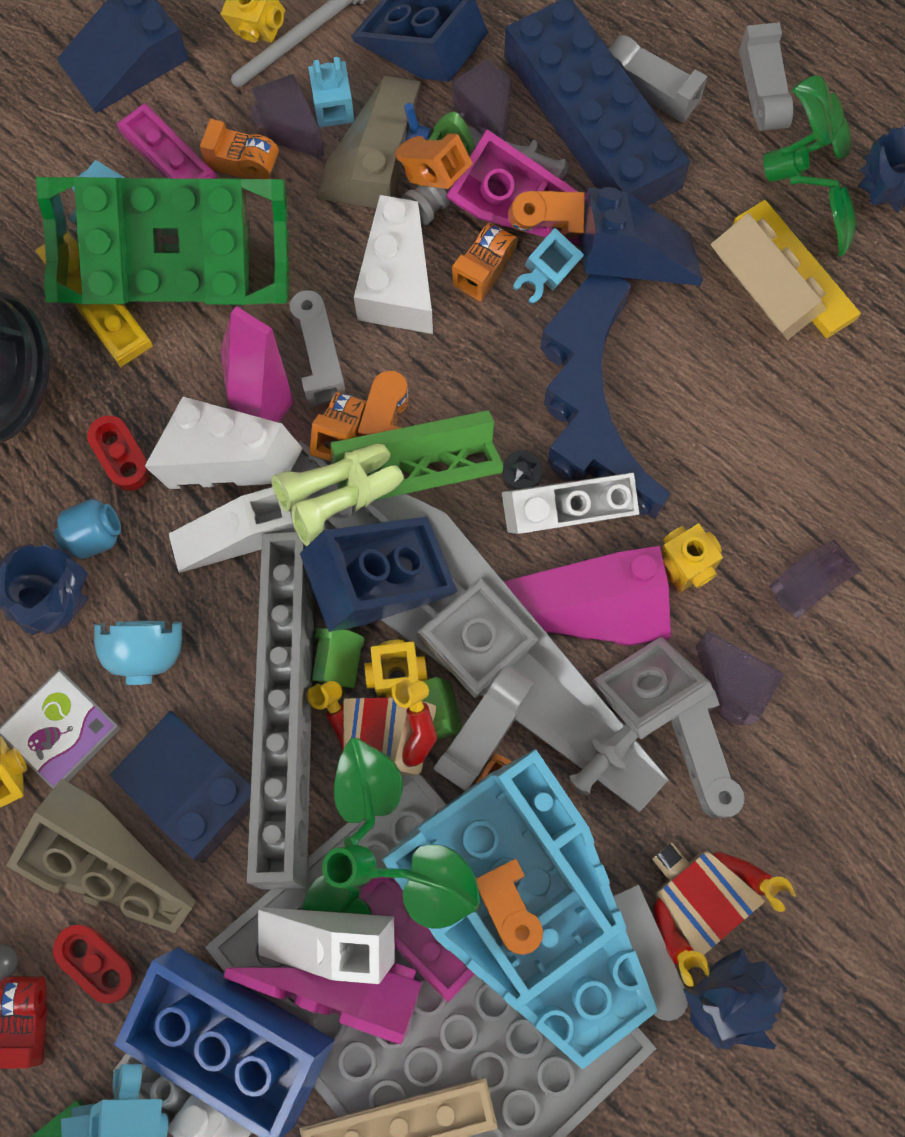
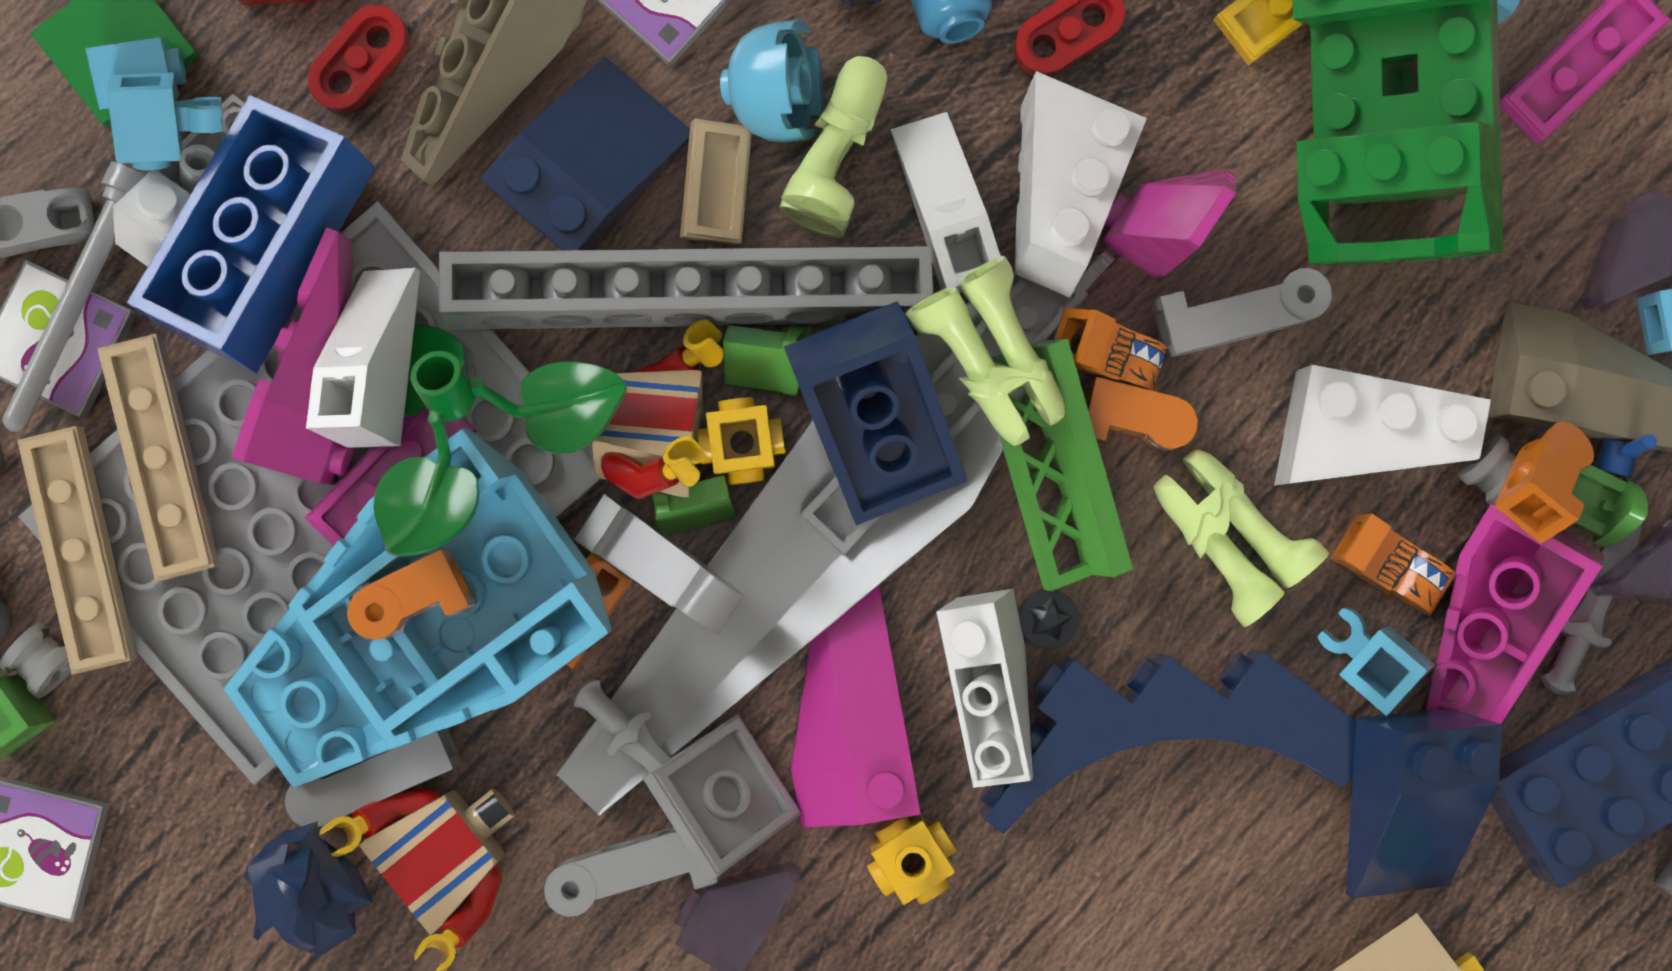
camera: 90 degrees right, 15 degrees up
(207, 693) = (715, 182): none -> tan tile
(221, 616) = (812, 193): none -> yellowish green piece
(237, 152) = (1579, 174): orange leg -> none
(449, 356) = (1206, 531): none -> yellowish green piece
(477, 637) = (789, 554): light grey tile -> none
(548, 210) = (1469, 641): orange leg -> none

